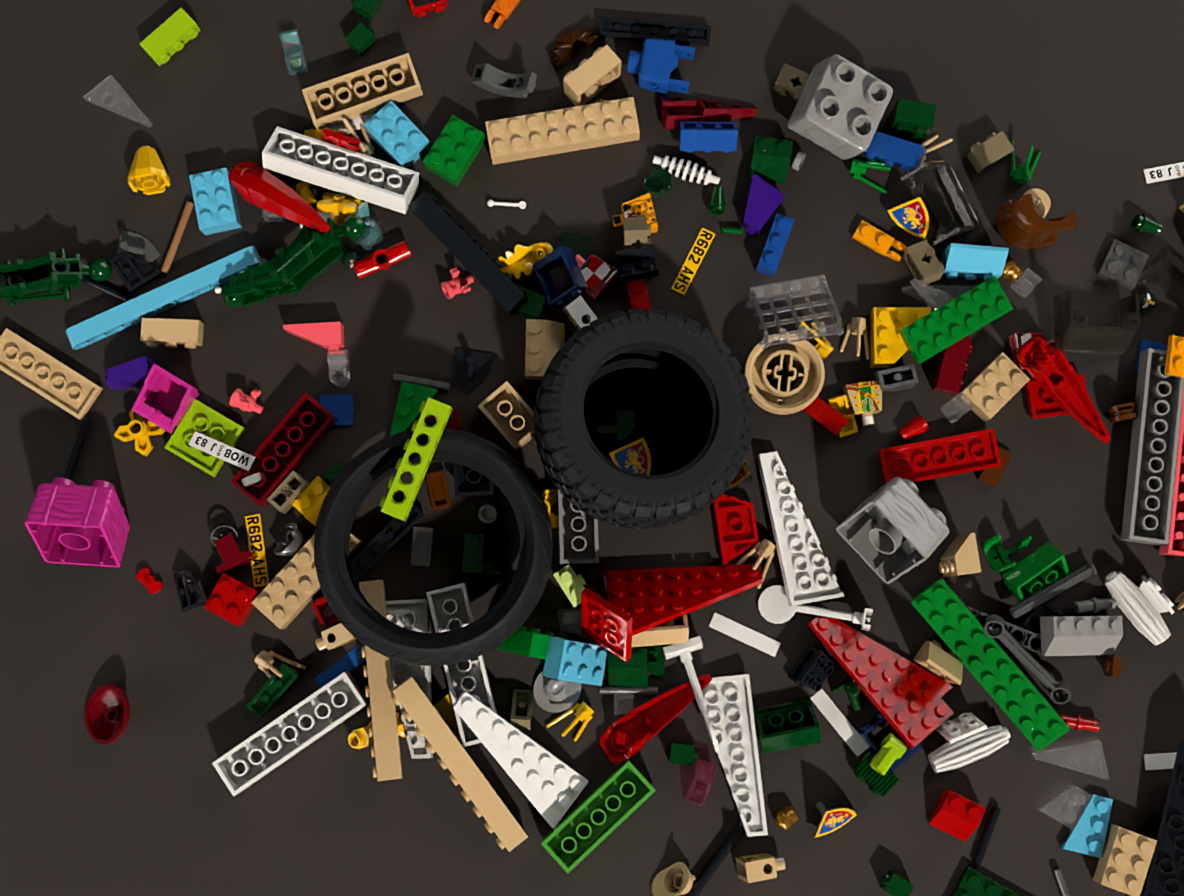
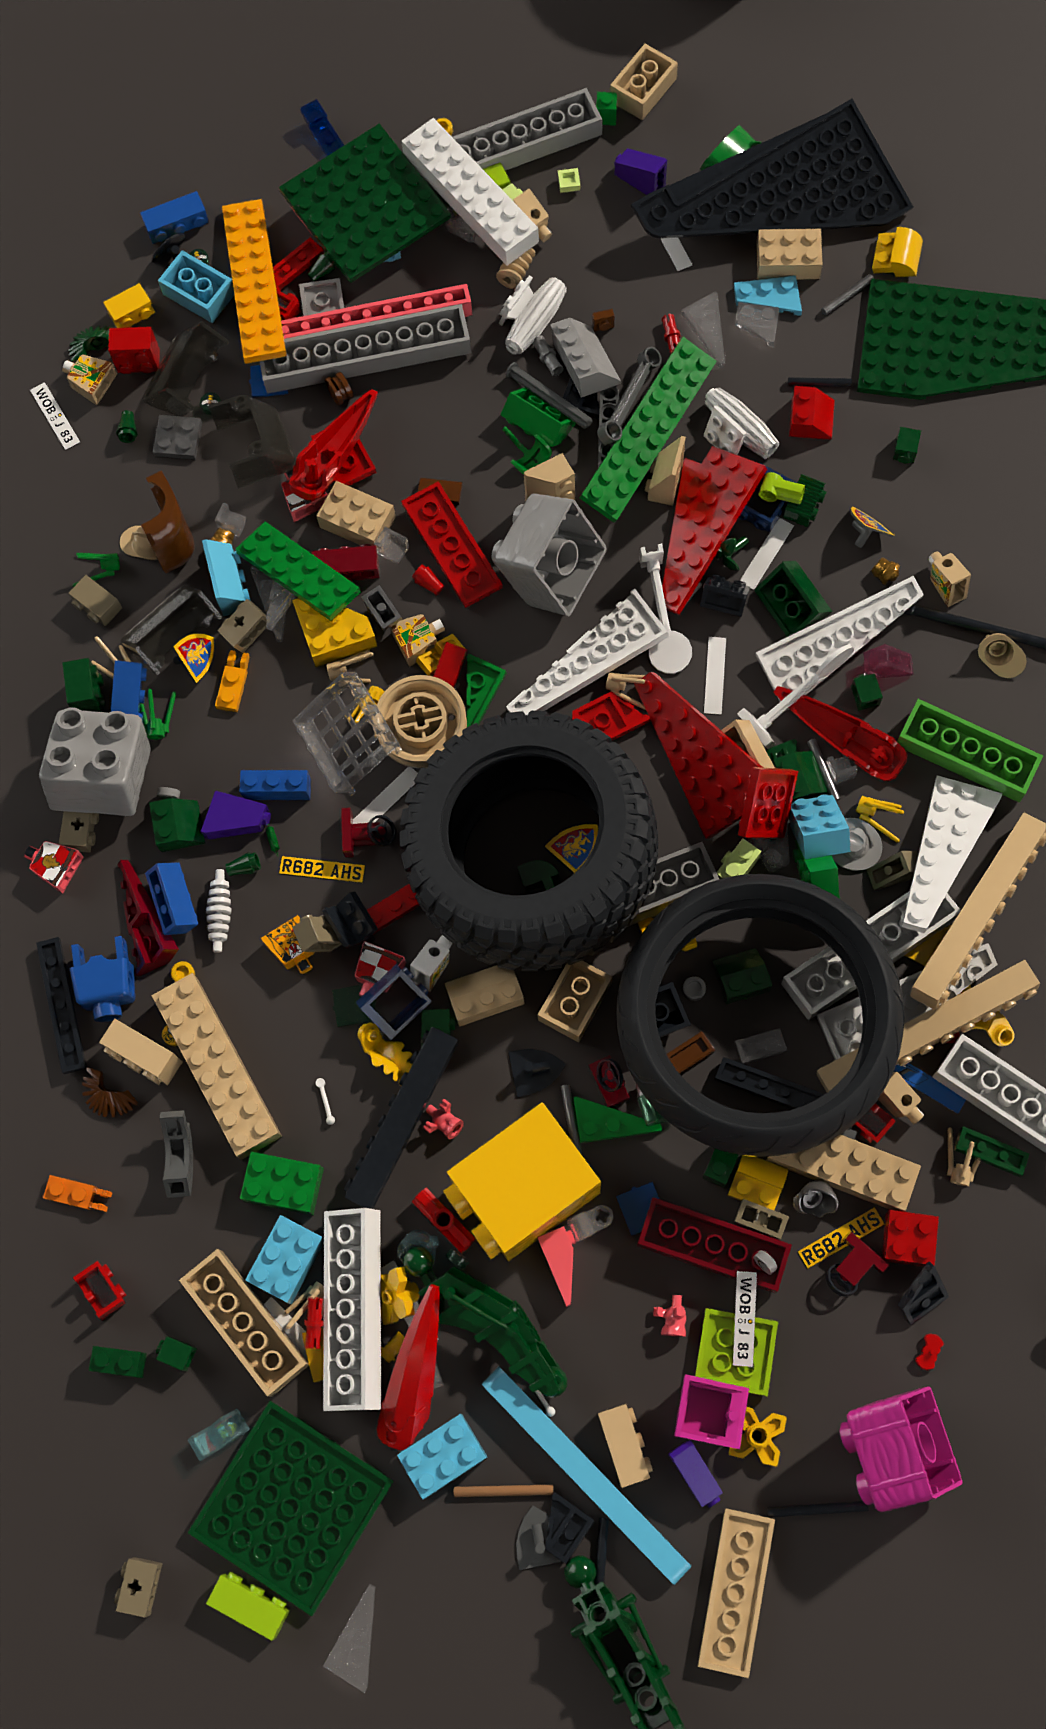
camera: 105 degrees left, 10 degrees down
(148, 172) = (433, 1560): yellow cone -> none
(224, 87) = (291, 1507): none -> dark green plate
(376, 319) = (521, 1184): none -> yellow brick
(402, 509) = (687, 1042): lime brick -> none
(647, 129) = (181, 970): none -> yellow tile
(658, 183) = (244, 934): clear green hair -> none
(710, 301) = (363, 833): none -> dark red piece
(732, 328) = (388, 796): none -> white sticker
(770, 56) = (54, 863): none -> torso
(802, 439) = (482, 686): none -> green wing

